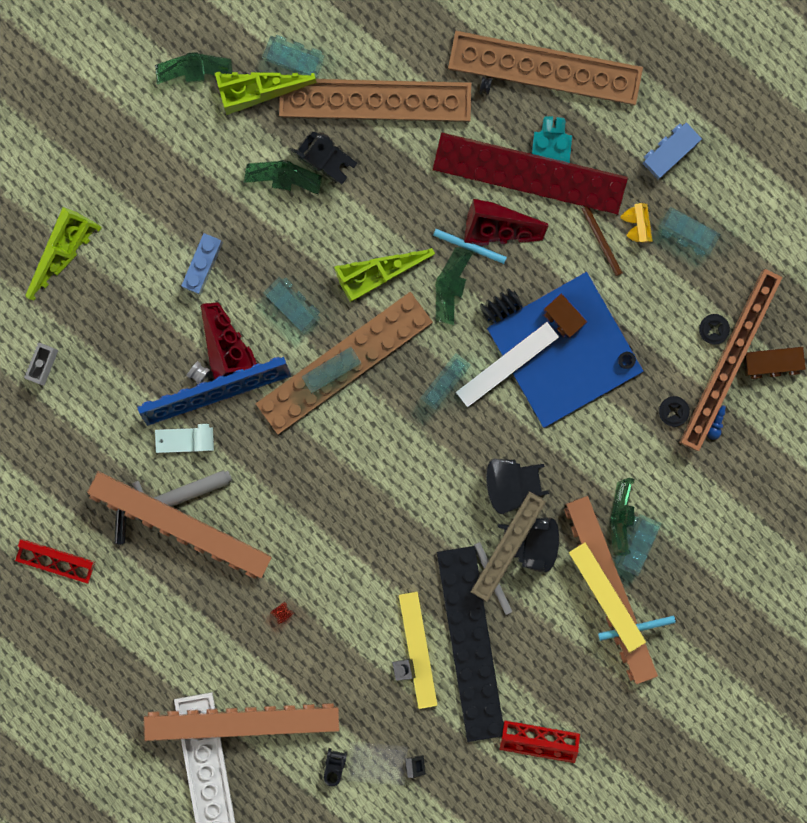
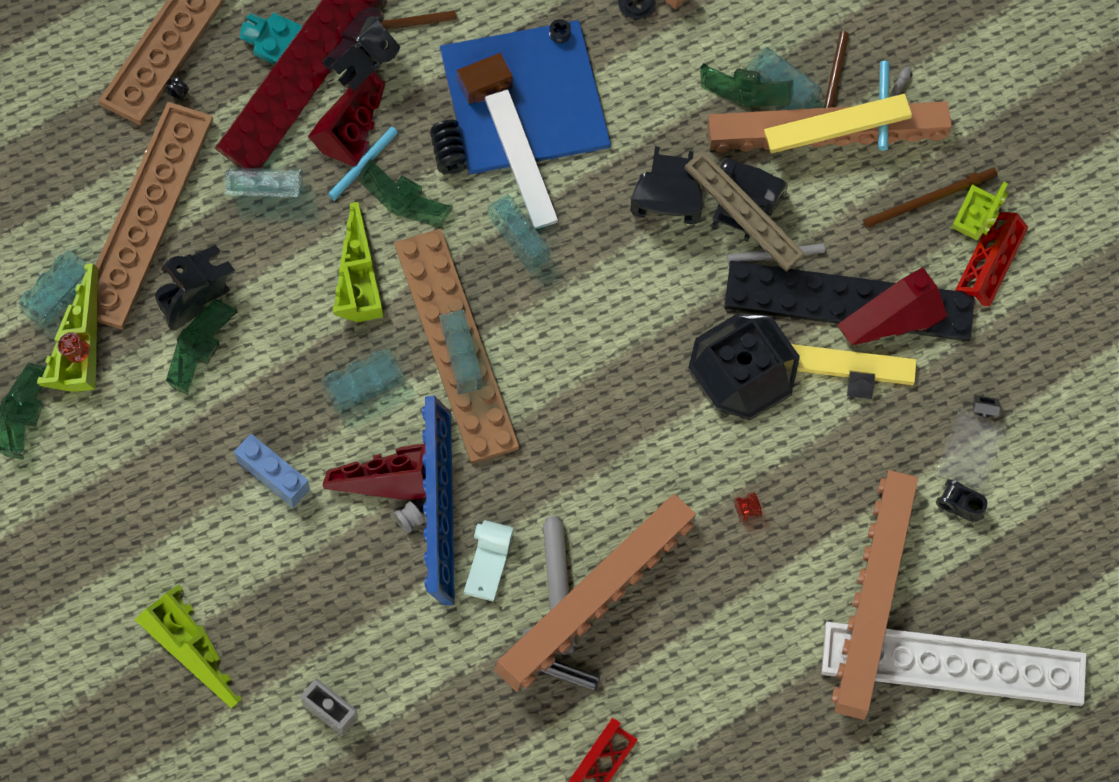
camera: 80 degrees left, 20 degrees down
(244, 84) = (73, 347): none -> clear red wheel
(413, 575) = (738, 387): none -> black piece
(425, 179) = (264, 182): none -> clear light blue brick
(469, 685) = (902, 308): none -> dark red wedge
(556, 214) = (360, 41): none -> black piece
(573, 723) = (979, 211): none -> lime bracket
(600, 710) = (971, 179): none -> reddish brown bar
(661, 582) = (836, 69): none -> reddish brown bar
(664, 634) = (899, 85): none -> light grey piece

